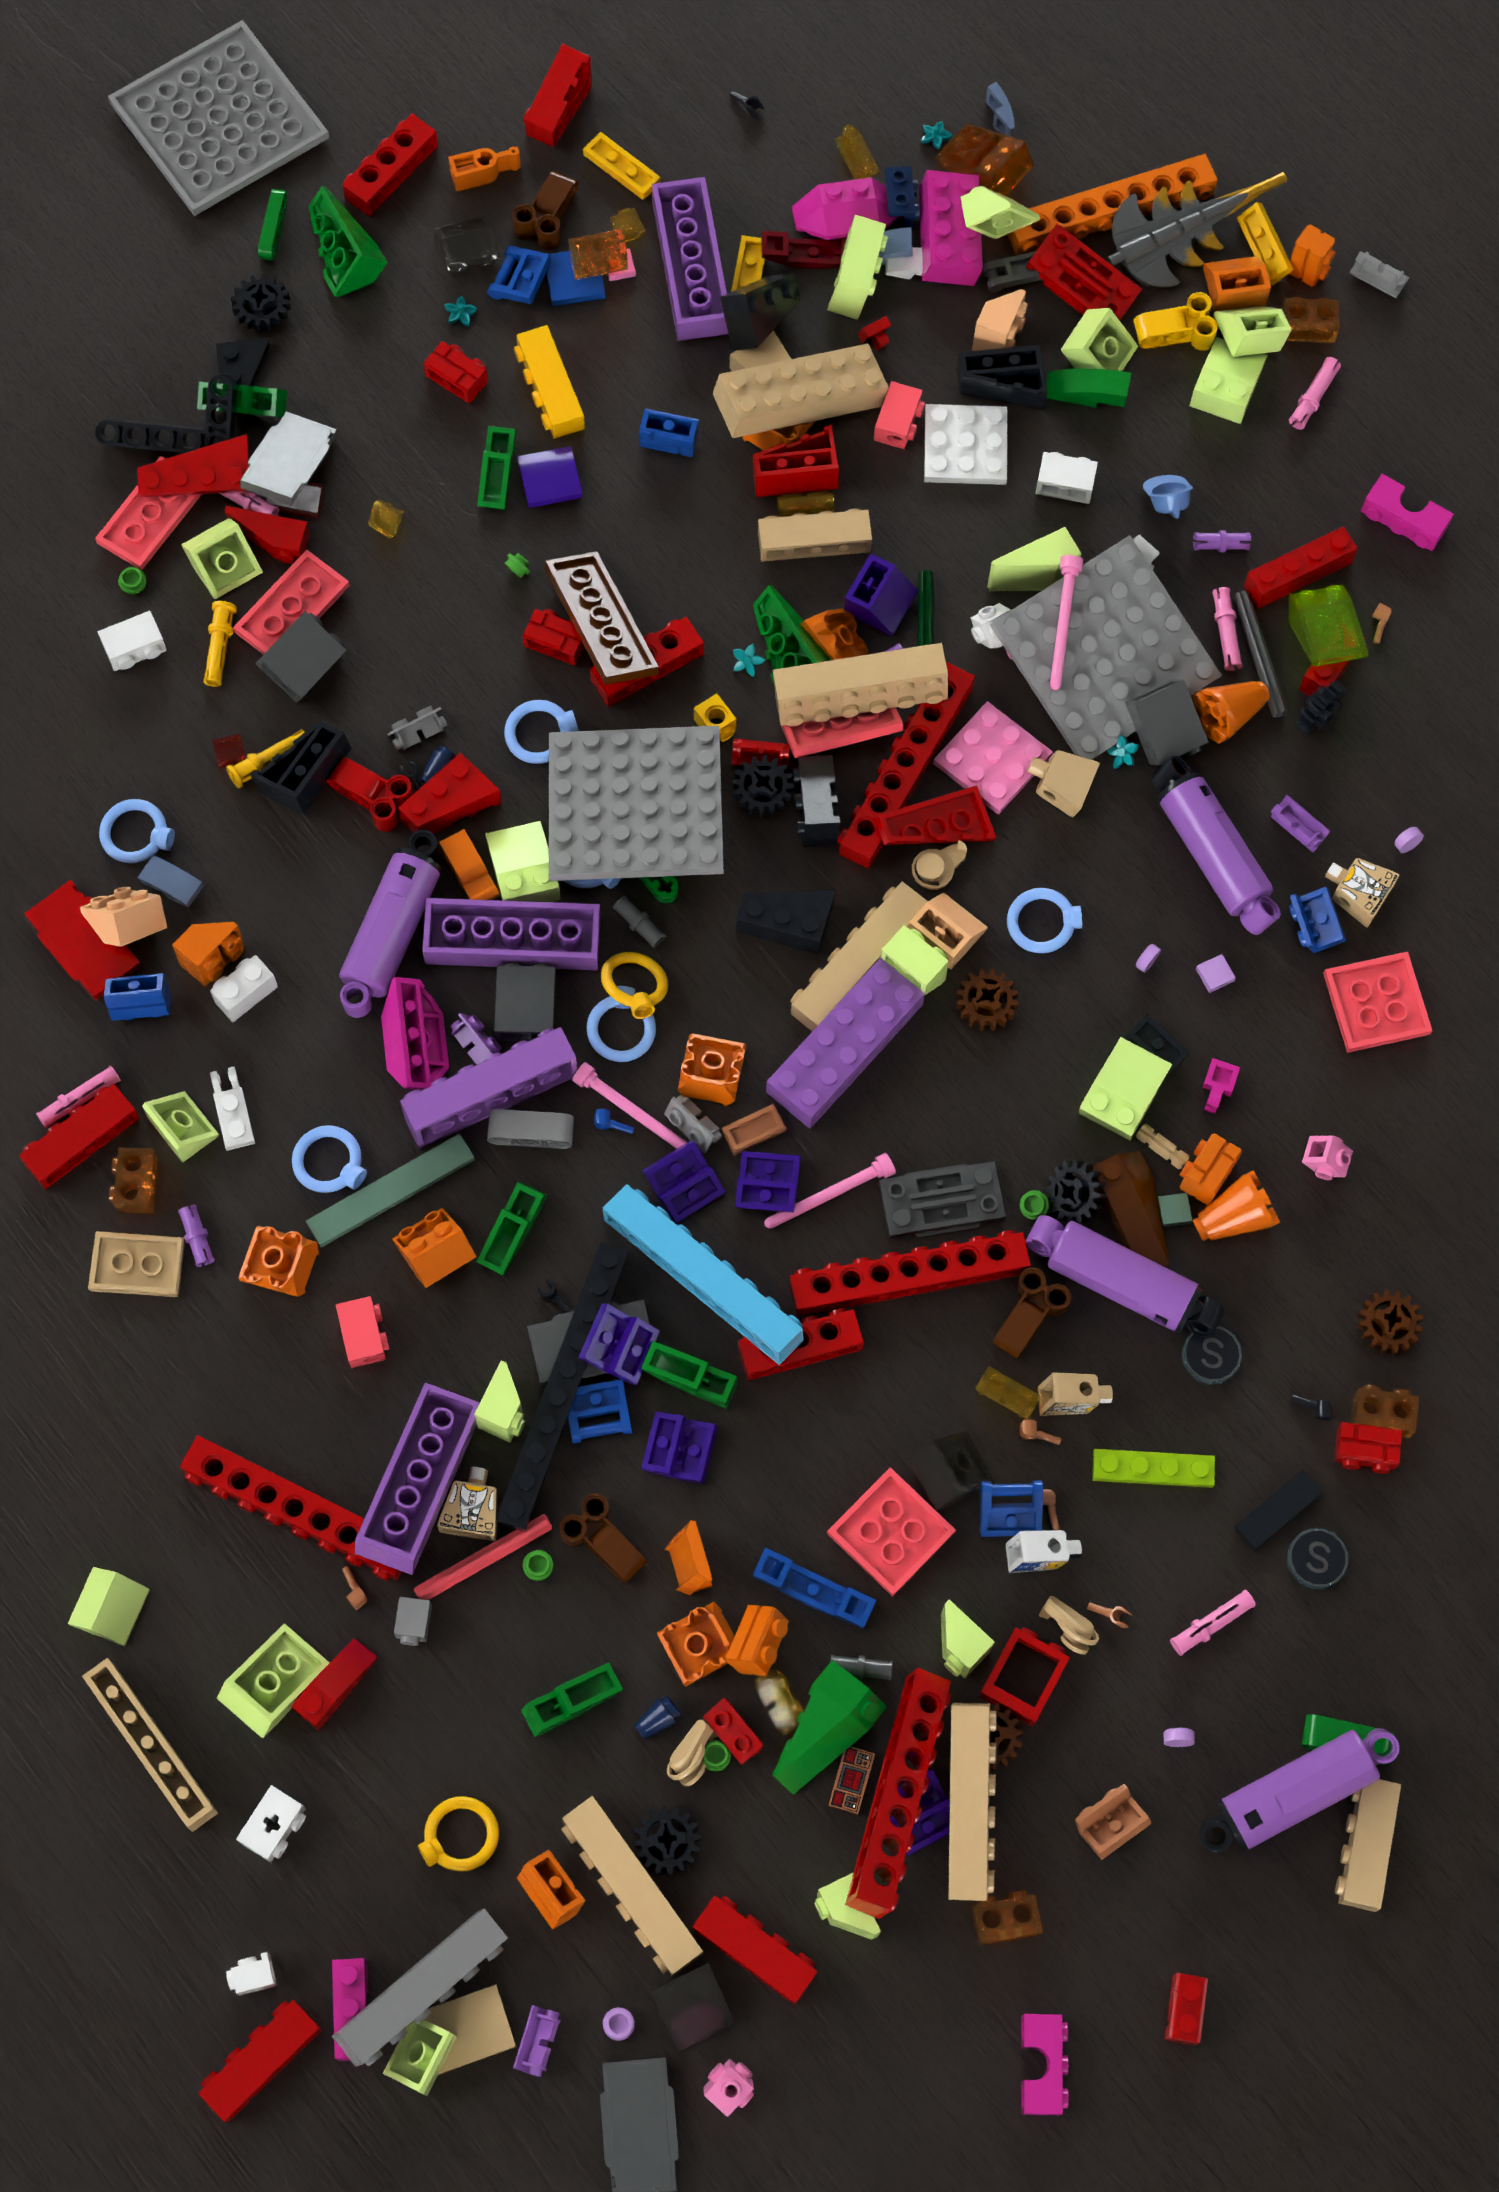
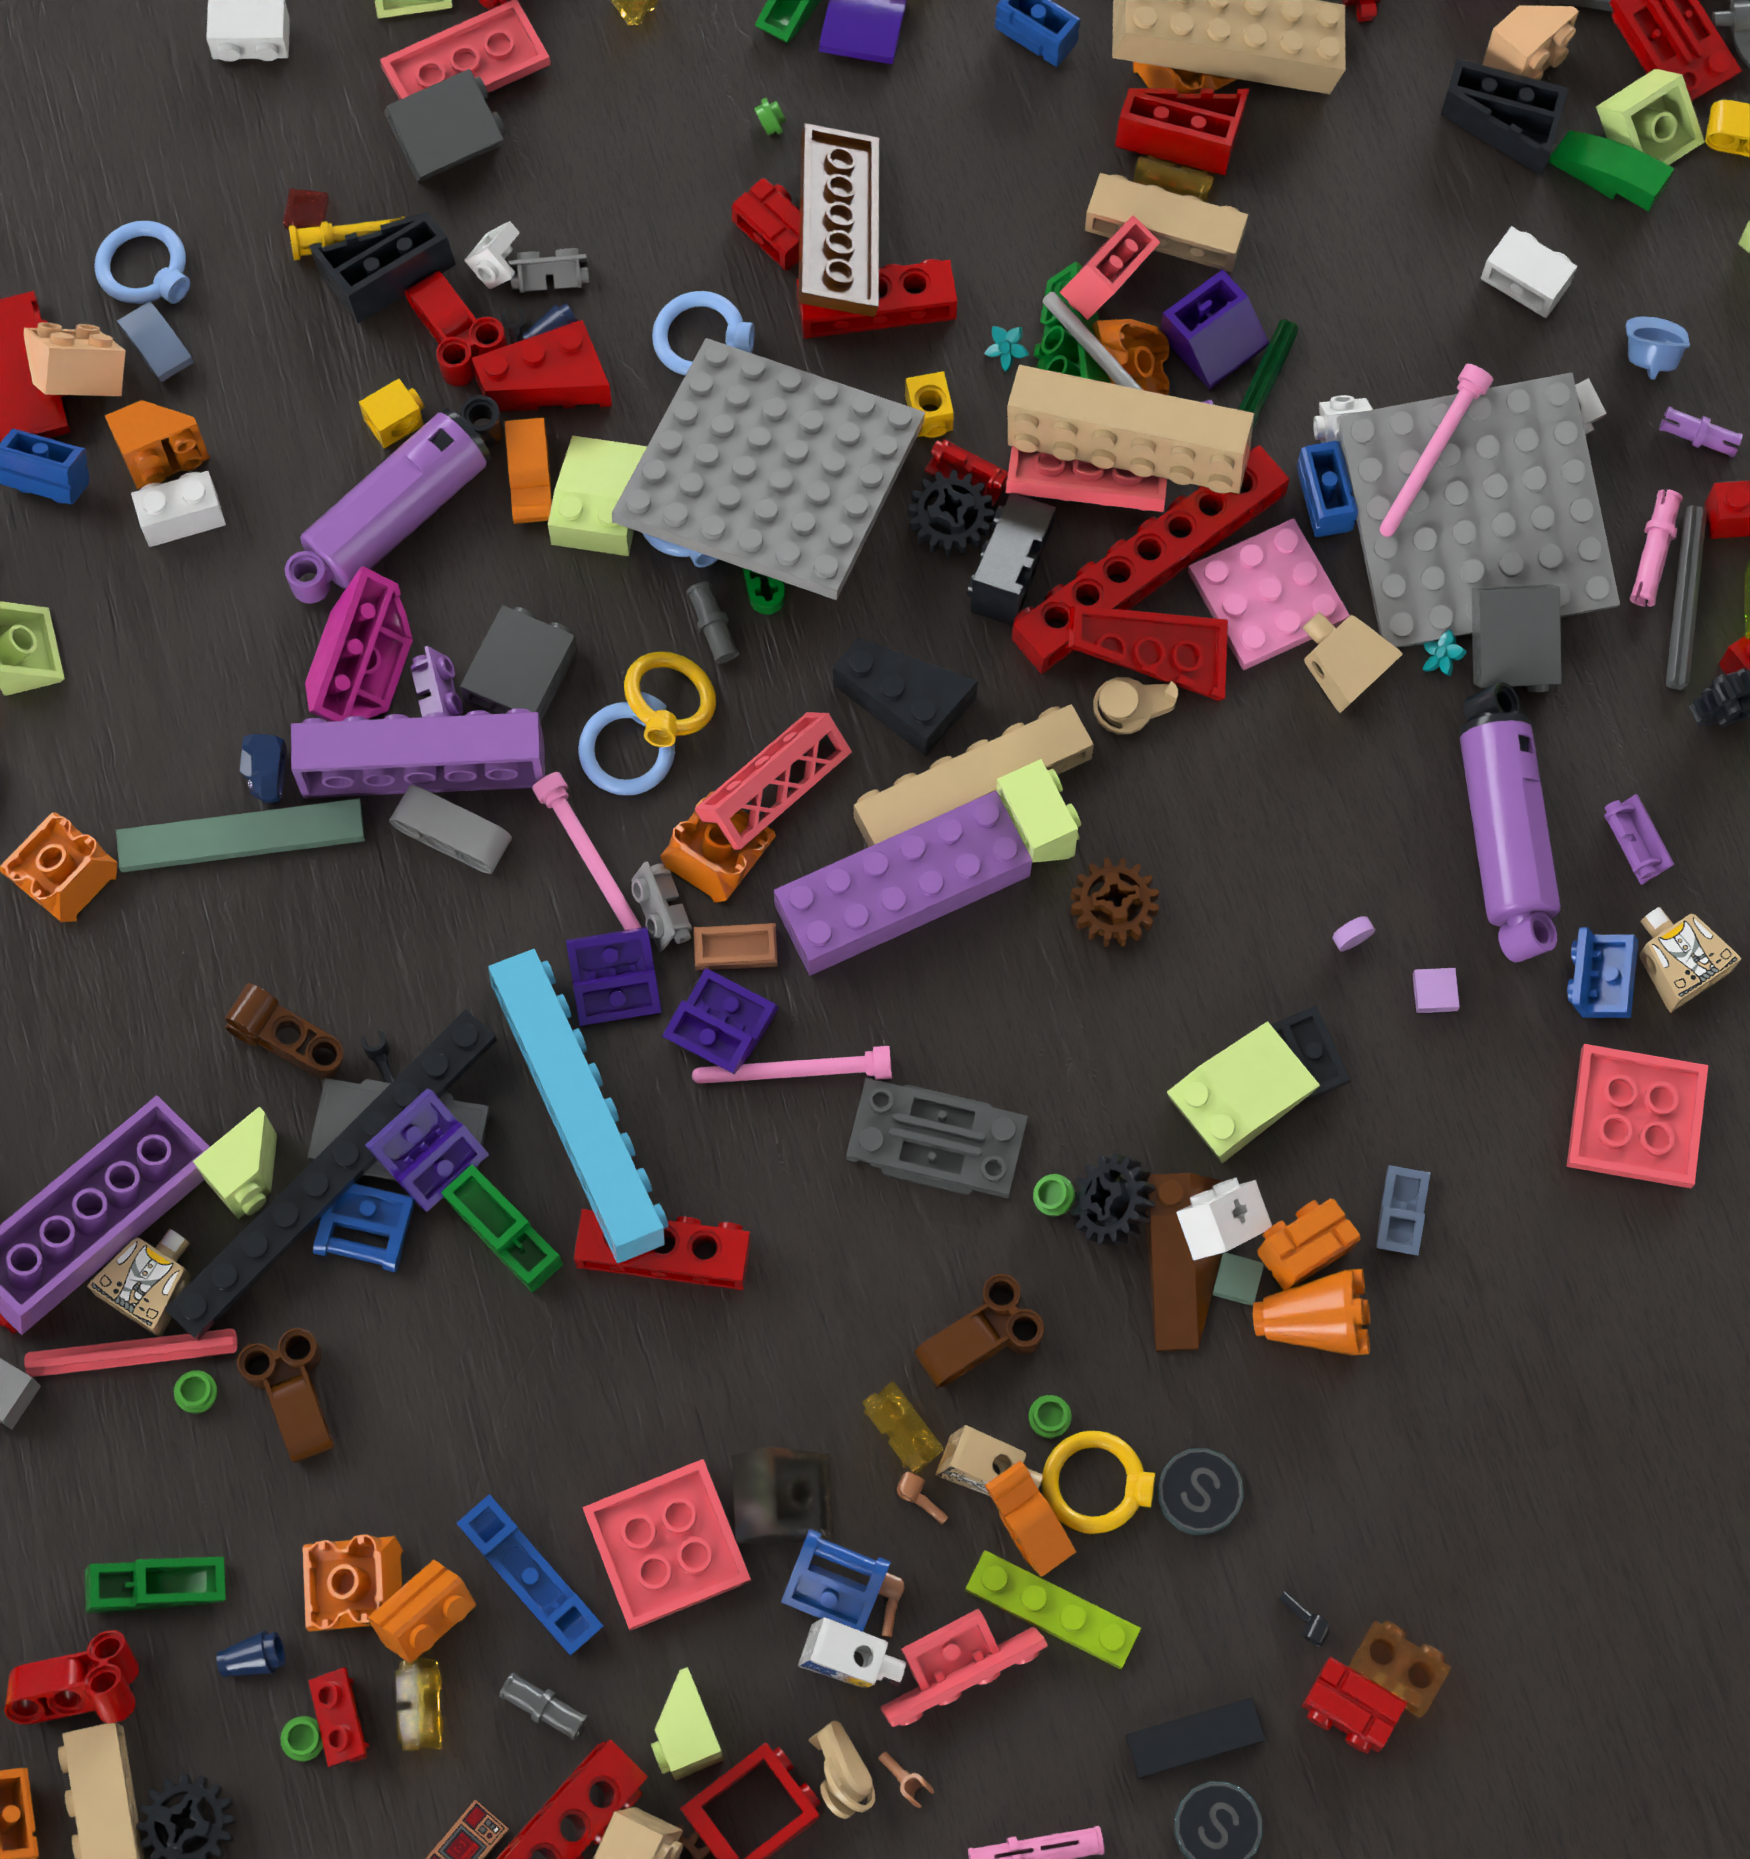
camera: 25 degrees right, 0 degrees up
(220, 631) = (363, 59): yellow pin -> none
(232, 1112) = (93, 656): white hinge -> none
(351, 1174) = (200, 794): light blue piece -> none
(357, 866) = (392, 412): none -> yellow brick
(361, 1331) = (116, 998): coral brick -> none
(373, 733) = (489, 256): none -> white bracket
(385, 1137) = (264, 766): none -> dark blue rock
(434, 1247) = (257, 929): orange slope -> none
(465, 1307) = (258, 1018): none -> reddish brown piece
(511, 931) = (542, 571): medium lavender brick -> none
(511, 1228) = (368, 944): green slope -> none
(553, 1783) = (76, 1683): none -> red piece
(602, 1121) = (548, 857): blue hand -> none
(679, 1447) = (447, 1317): dark purple slope -> none
(688, 1755) = (261, 1726): tan piece -> none
(689, 1560) = (390, 1469): orange slope -> none
(721, 1005) = (768, 765): none -> coral fence
(796, 581) = (1109, 267): none -> coral brick
(807, 636) = (1088, 341): none -> light grey bar
(809, 1301) = (823, 1225): red brick -> none
(834, 1719) = (467, 1762): green wedge -> none
(898, 415) = (1345, 112): coral brick -> none
(948, 927) = (1103, 788): light nougat slope -> none
(965, 444) = (1417, 182): white plate -> none
(1001, 673) = (1327, 489): none -> blue brick
(1033, 565) = (1428, 363): yellowish green slope -> none
(1071, 919) = (1275, 841): light blue piece -> none
(1096, 1347) = (1049, 1416): none -> bright green plate
(1108, 1527) = (954, 1661): none -> coral bracket
(1117, 1416) = (1030, 1519): none -> orange piece
(1125, 1276) = (1128, 1340): medium lavender piece -> none
(1152, 1174) = (1223, 1218): none -> white brick
(1162, 1146) = (1246, 1165): tan axle -> none
(1173, 1370) = (1138, 1485): none -> yellow piece
(1220, 1080) = (1376, 1133): dark pink plate -> none
(1229, 707) = (1609, 649): orange cone -> none
(1257, 1123) = (1402, 1210): none -> sand blue slope
(1327, 1156) = (1473, 1293): bright pink brick -> none
(1378, 1319) = (1447, 1539): reddish brown gear -> none

